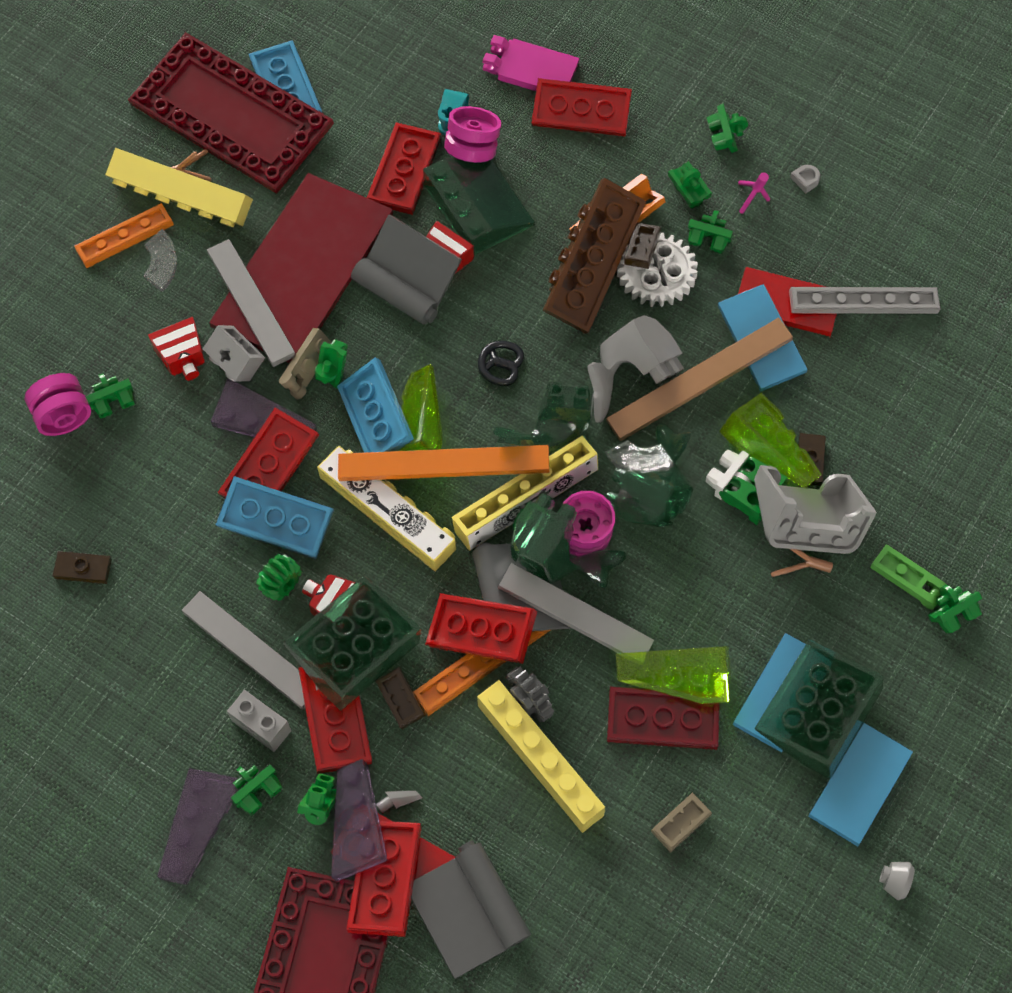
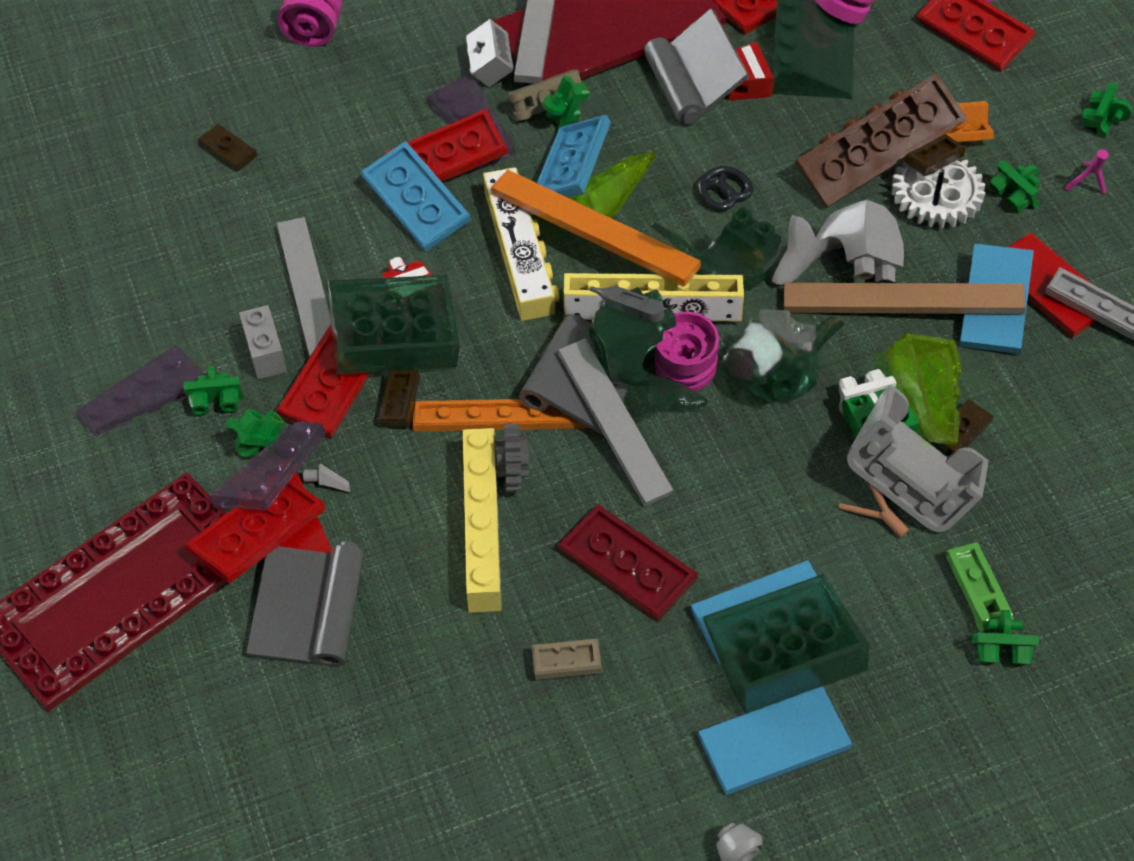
camera: 35 degrees right, 10 degrees down
(108, 391) = (361, 30): green hips -> none
(179, 348) = (449, 26): red torso -> none
(278, 577) = (376, 240): green gear -> none
(481, 628) = (515, 379): red tile -> none
(537, 519) = (631, 303): none -> dark grey piece
(684, 673) = (677, 531): clear neon green wedge -> none
(689, 184) = (1028, 137): green hips -> none

